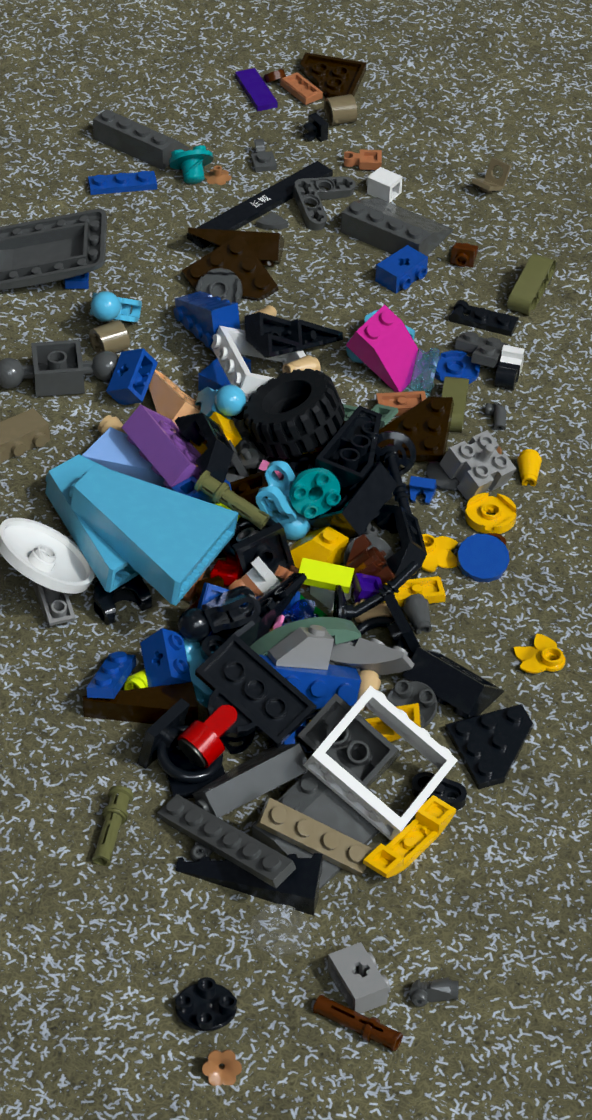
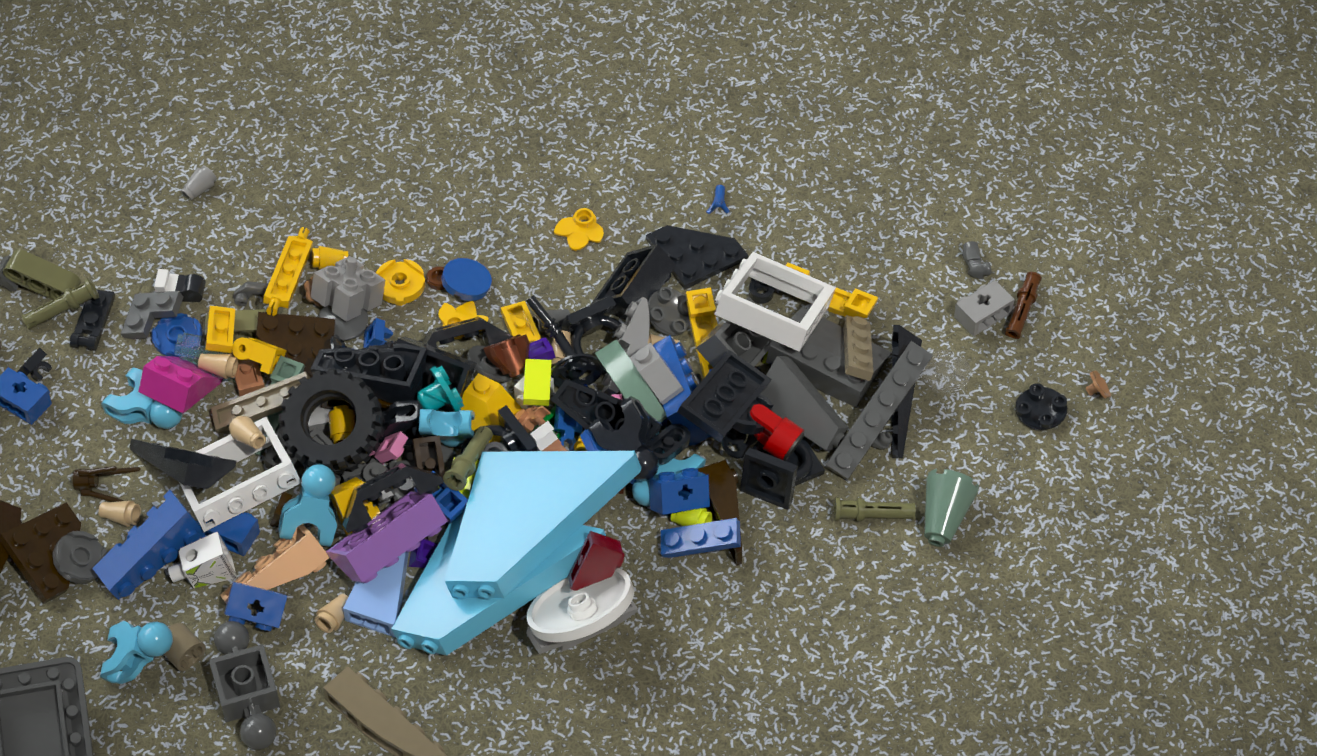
camera: 100 degrees left, 10 degrees up
(84, 564) = (595, 561): none -> dark red slope
(93, 879) = (946, 504): none -> sand green cone
(187, 348) = (204, 562): none -> white torso
(302, 303) = (89, 478): none -> dark brown plant
(351, 394) = (255, 404): none -> dark tan plate
(400, 378) = (219, 364): none -> tan cone
(405, 397) = (259, 352): none -> yellow leg
(435, 278) = (34, 363): none -> black tile
(436, 373) = (220, 329): none -> yellow plate
(500, 297) = (70, 299): none -> olive pin
(508, 430) = (288, 271): none -> yellow plate
(565, 775) = (719, 200): none -> blue bar

